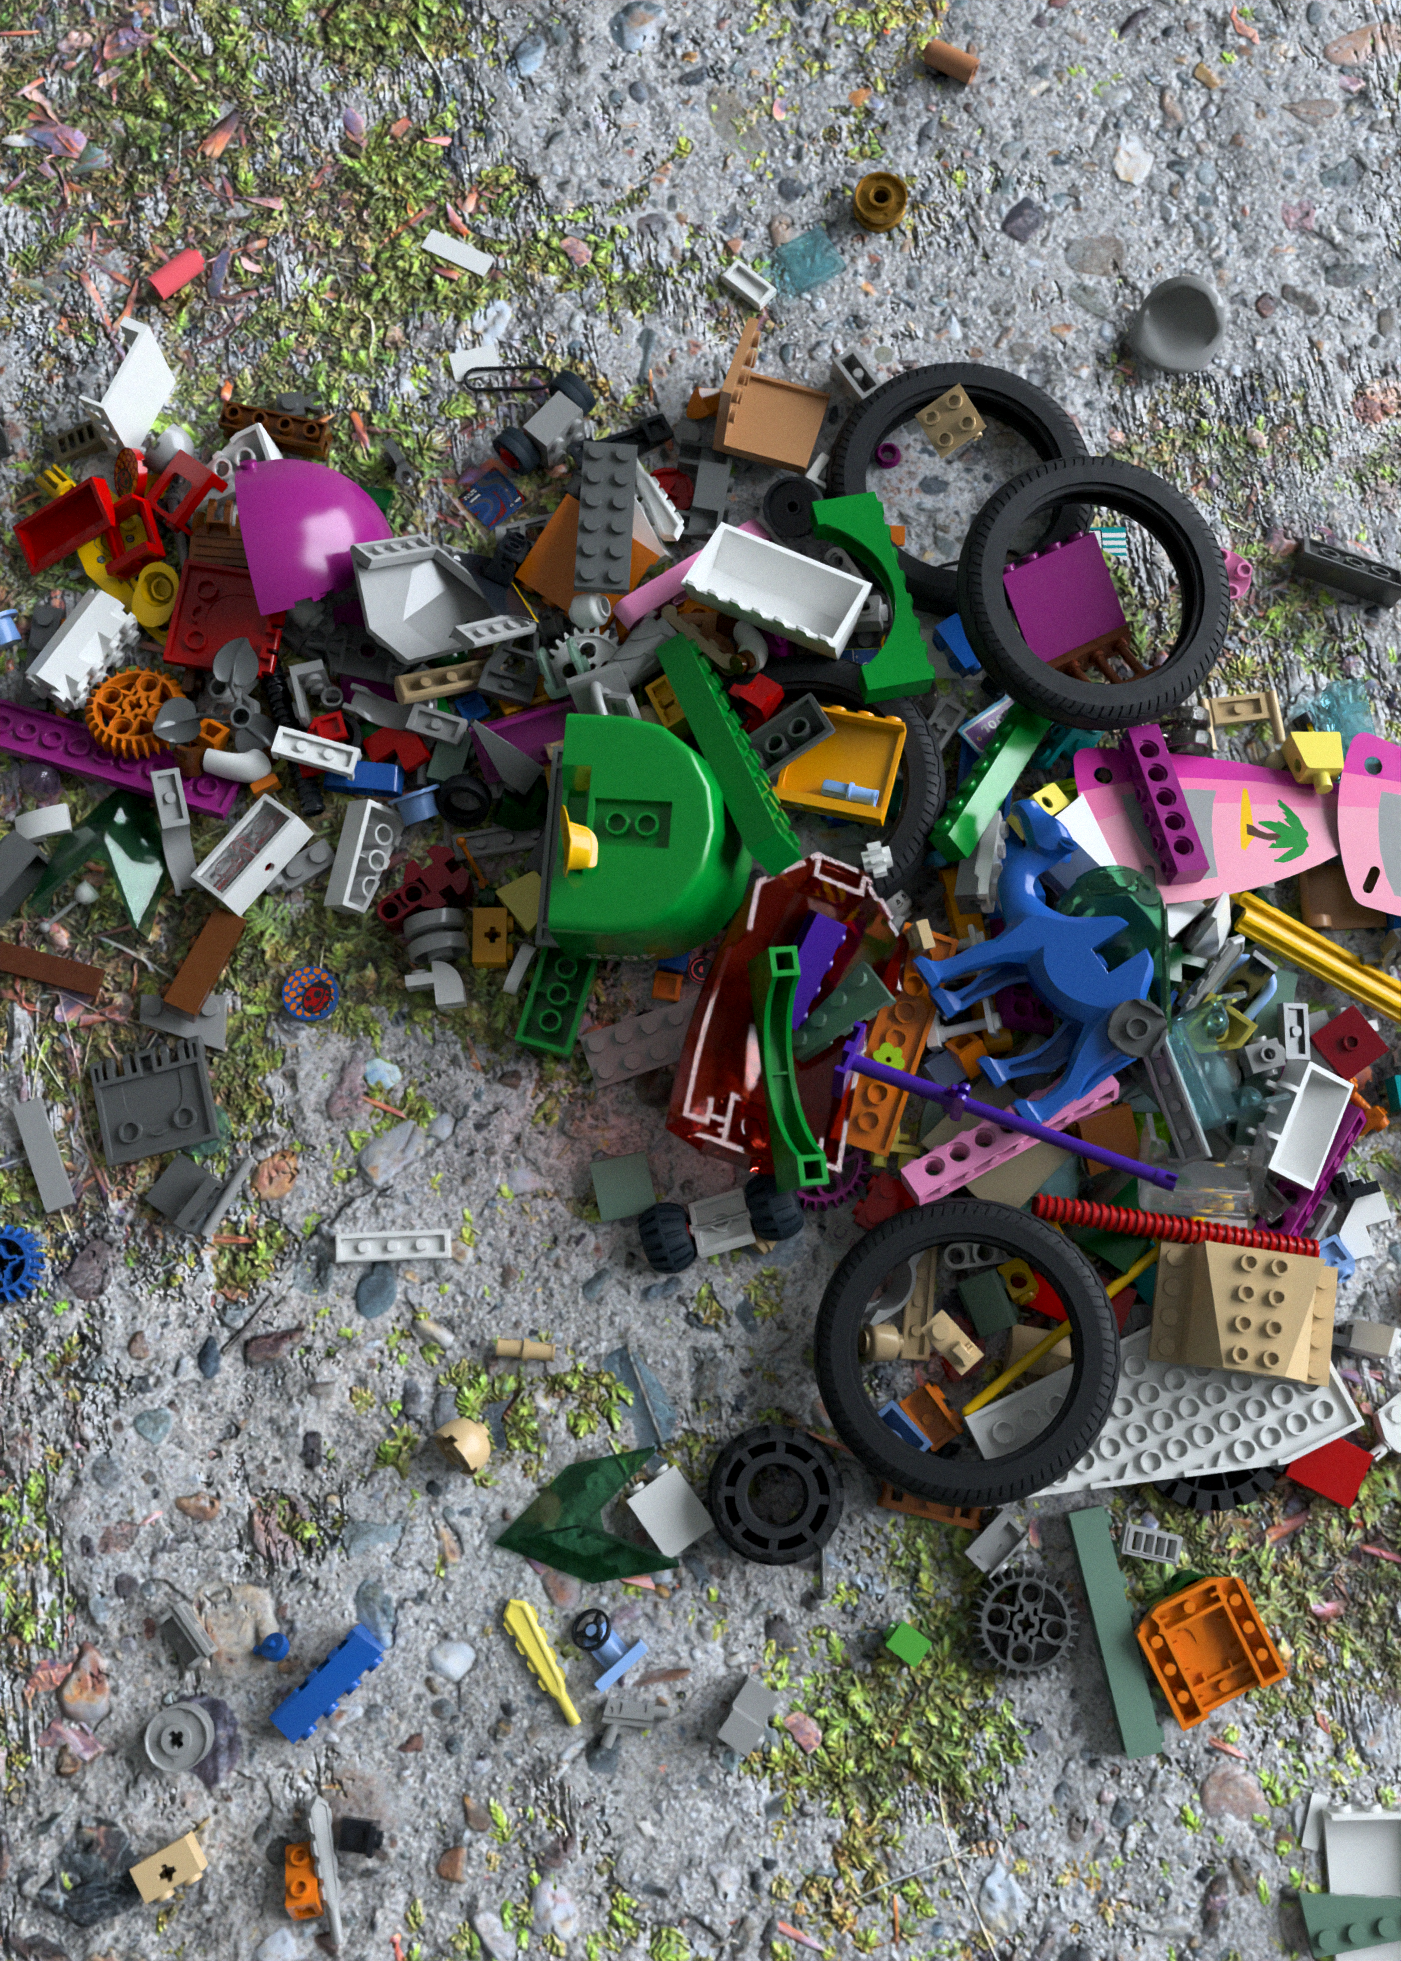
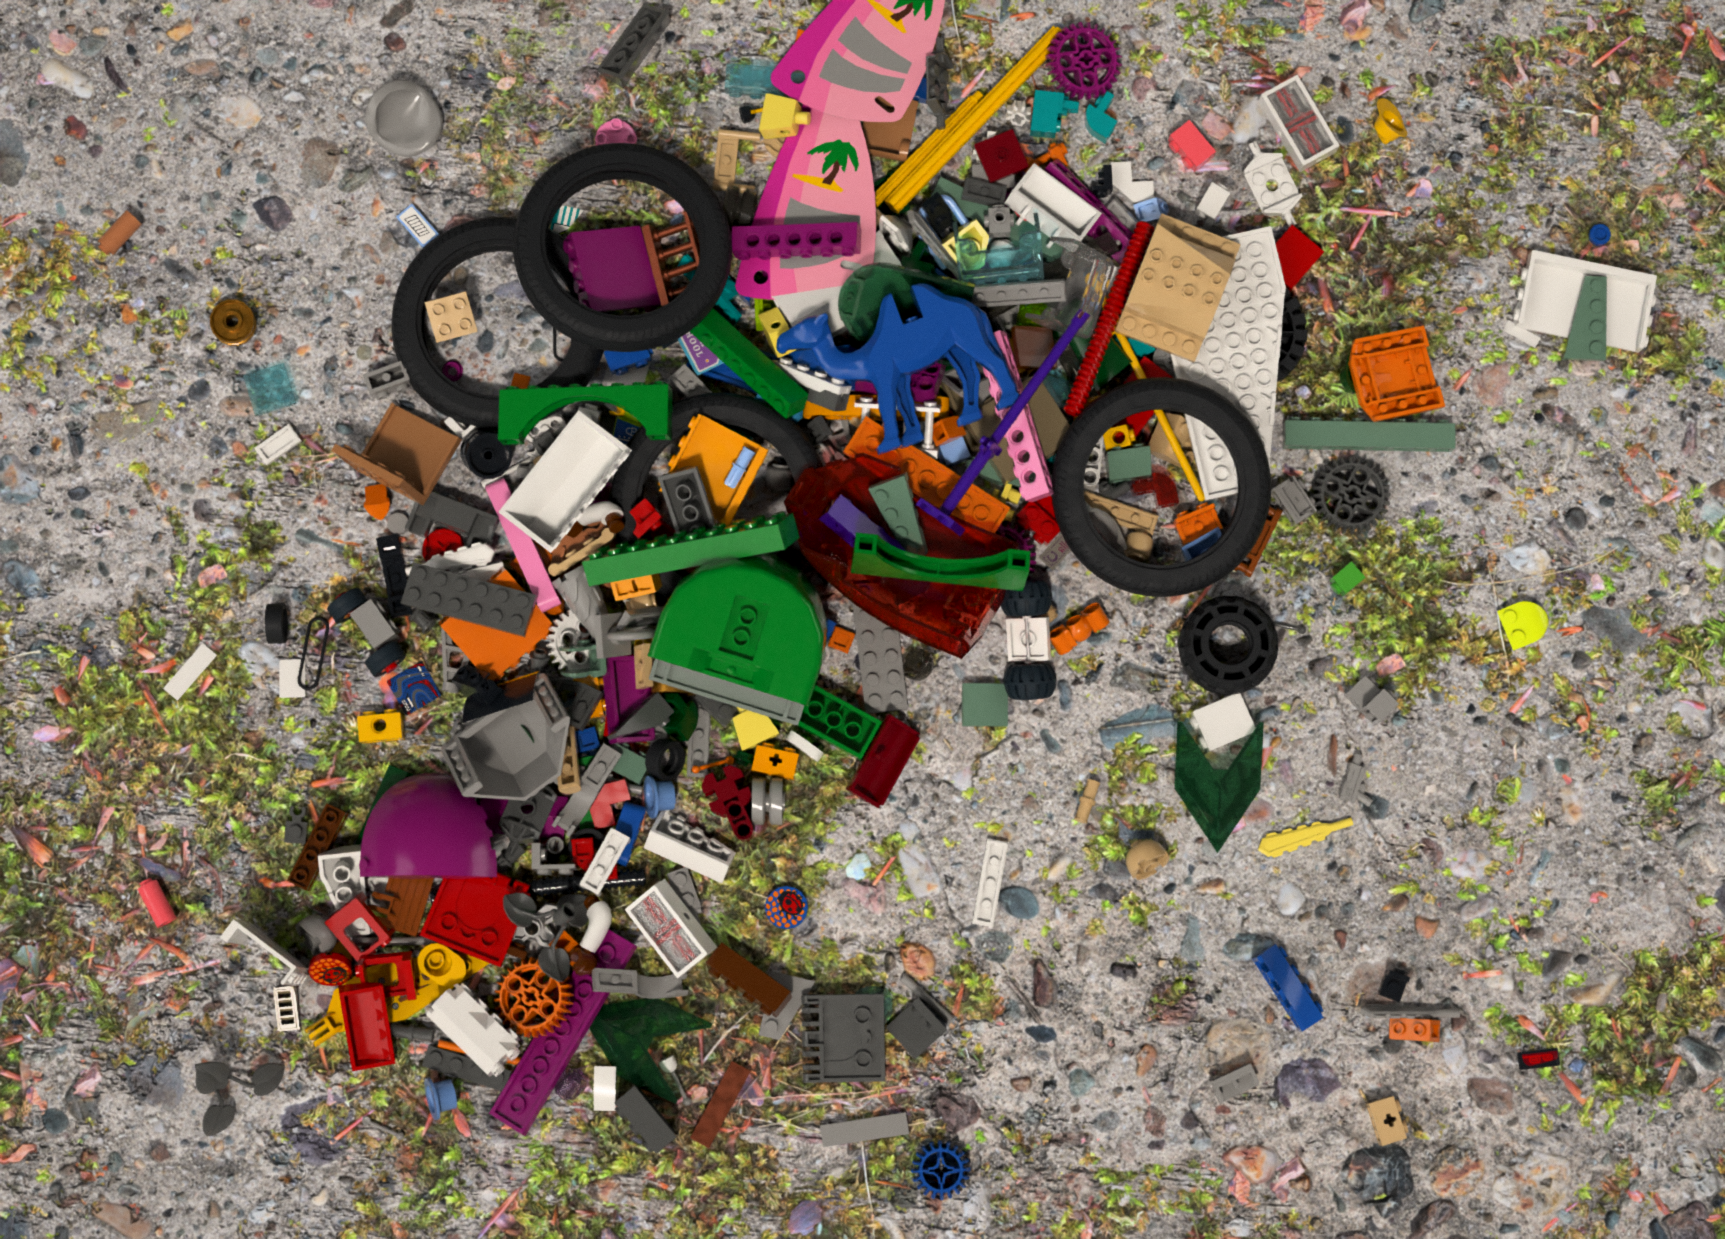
camera: 75 degrees left, 5 degrees up
(73, 583) = (412, 1032): none -> dark grey pin
(161, 1732) = (1314, 1099): light grey wheel -> none
(266, 785) = (615, 911): orange tile -> none
(273, 1647) = (1255, 1021): blue piece -> none
(394, 458) = (363, 758): dark grey plate -> none
(428, 455) = (393, 731): none -> yellow brick
(444, 980) = (802, 802): white brick -> none
(520, 1071) = (883, 761): none -> dark red container
(532, 323) = (276, 623): none -> black tyre
(578, 844) = (753, 668): yellow piece -> none
(589, 610) = (539, 630): white head -> none
(606, 1647) = (1306, 788): light blue piece -> none
(699, 968) = (835, 611): black tile -> none
(752, 1286) = (1078, 628): none -> orange piece
(877, 859) = (795, 460): white gear -> none
(892, 1053) = (945, 484): lime plant -> none
(907, 1917) = (1524, 623): none -> neon yellow slope
(920, 937) = (861, 443): tan plate -> none
(945, 1292) = (1113, 491): none -> dark grey arm
(951, 1342) = (1155, 494): tan hinge -> none
(1055, 373) = (417, 225): none -> tile
(1137, 1028) = (968, 308): dark grey tile -> none
(1167, 1548) = (1323, 383): light grey slope -> none

